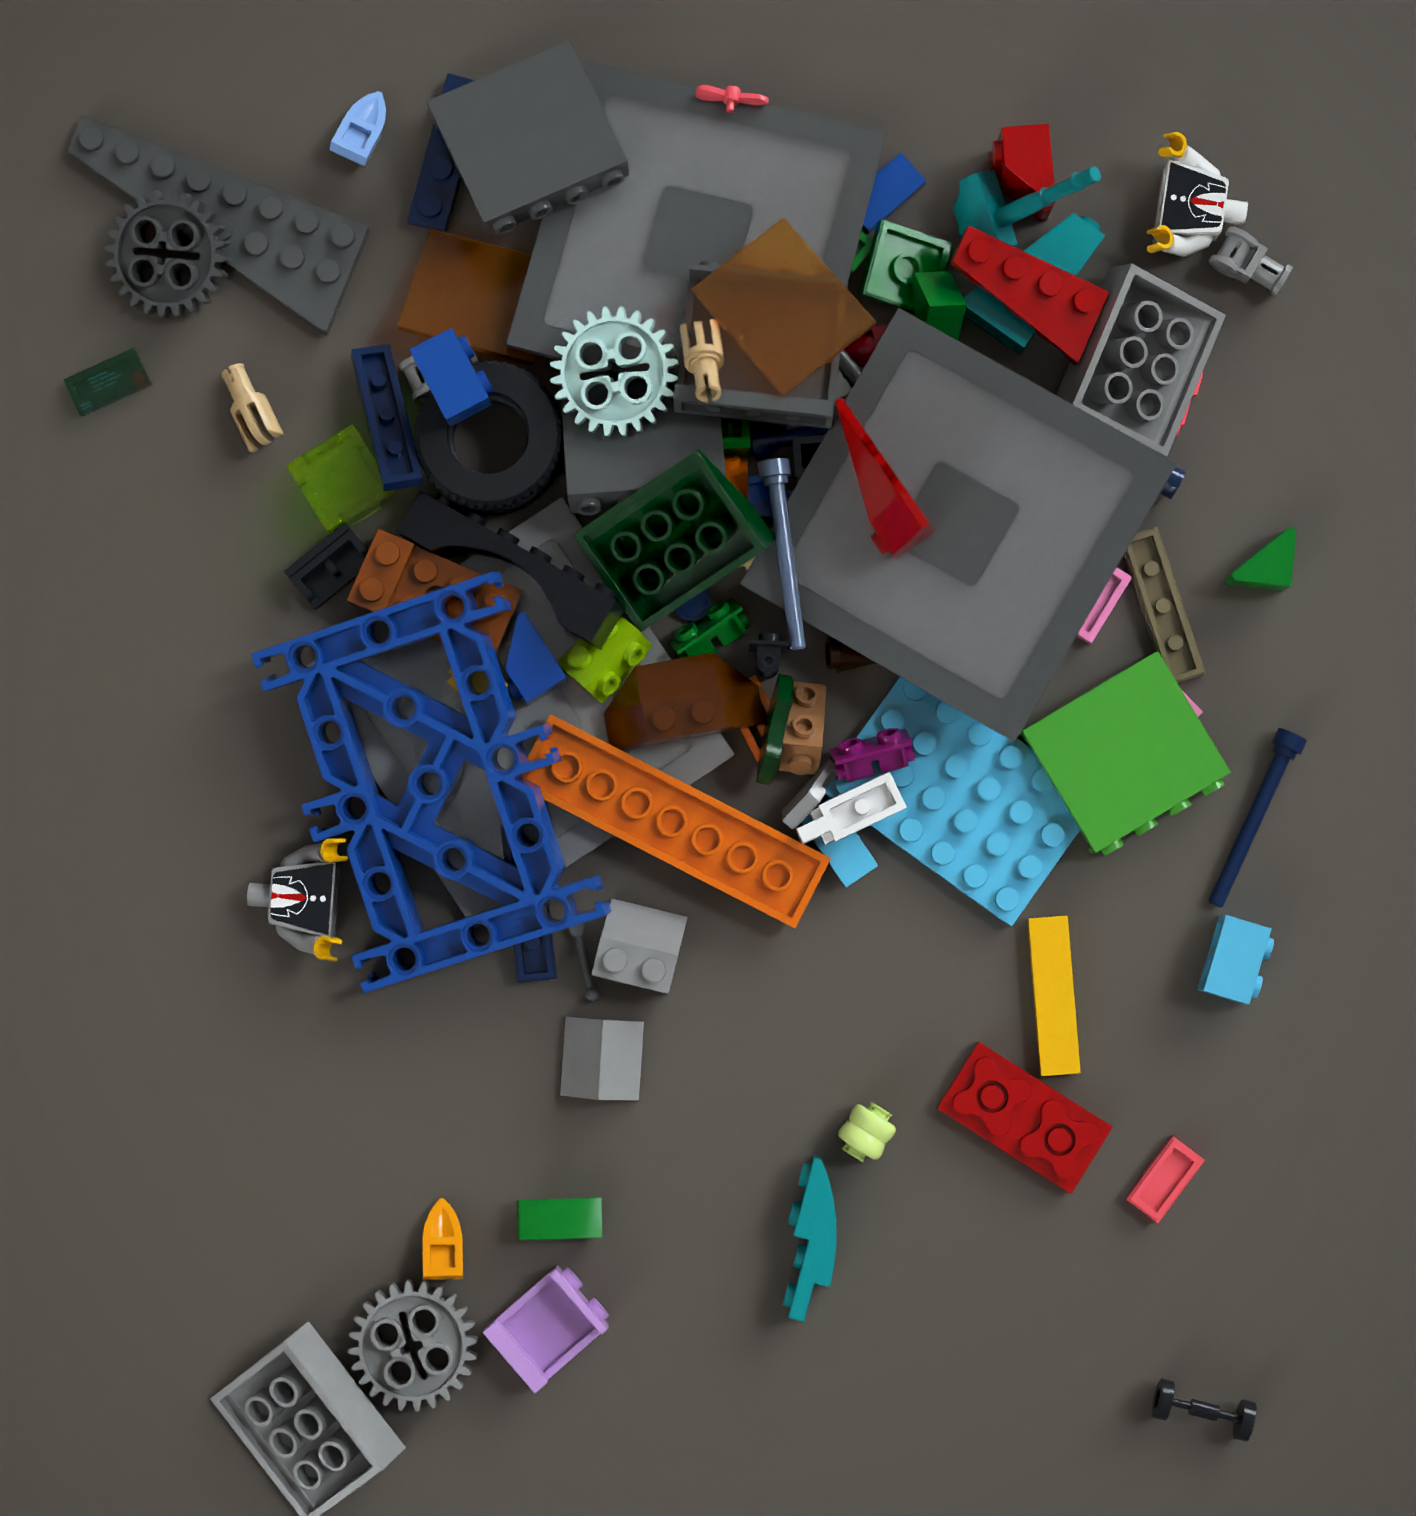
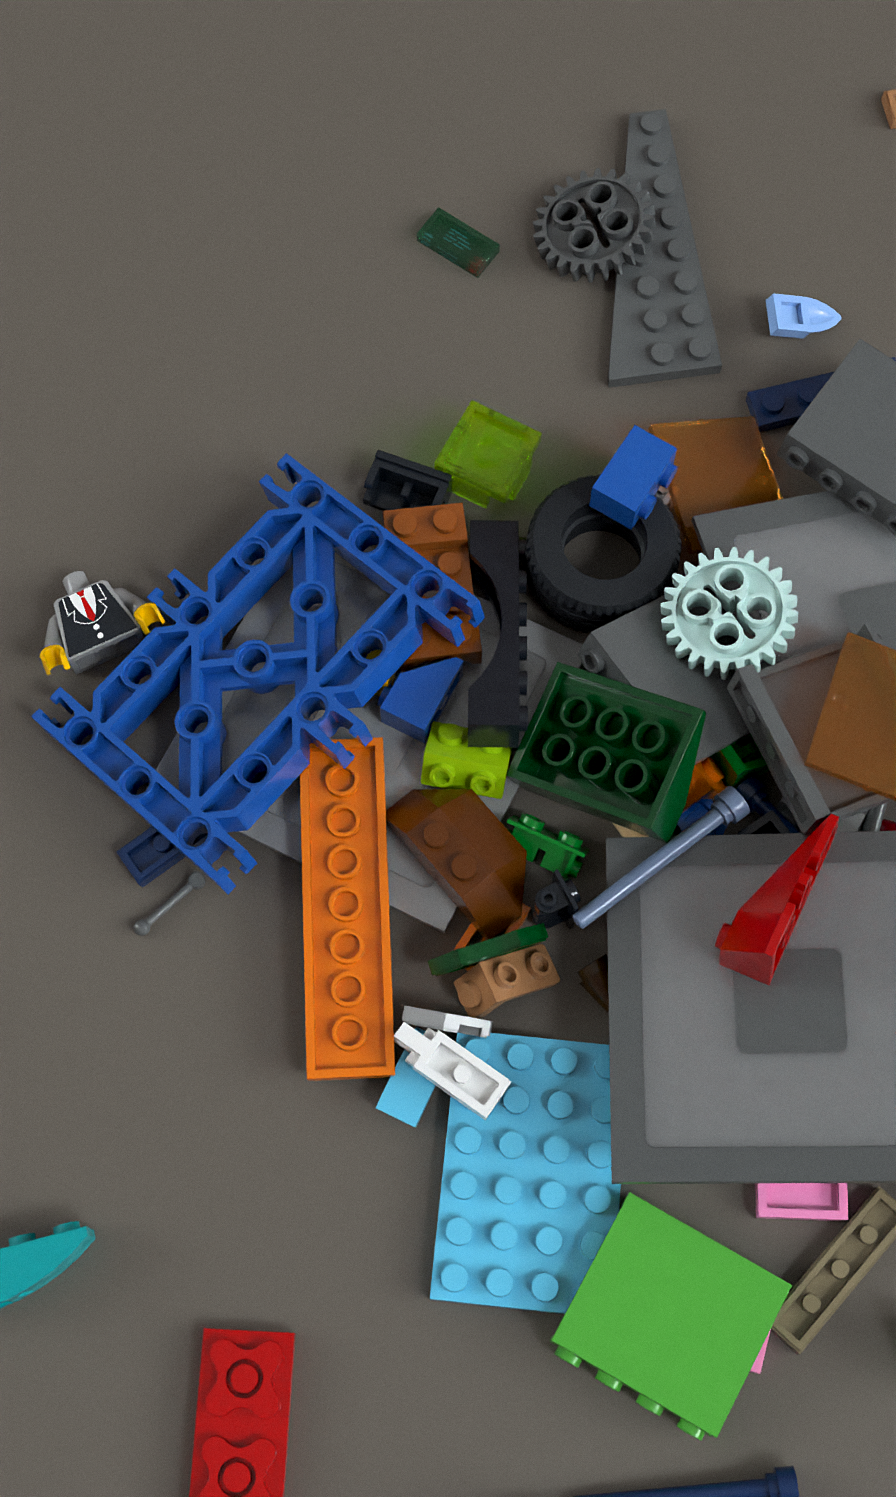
camera: 60 degrees right, 15 degrees down
(250, 410) = (503, 357): tan arm -> none
(386, 417) = (564, 460): dark blue plate -> none
(602, 1058) = (84, 972): light grey slope -> none
(639, 946) = (209, 943): light grey slope -> none
(695, 608) = (562, 817): dark blue piece -> none
(703, 359) = (793, 675): tan arm -> none
(867, 1131) = (142, 1268): yellowish green piece -> none
(889, 747) = (509, 1042): magenta hinge -> none
(1053, 995) = (382, 1386): yellow tile -> none

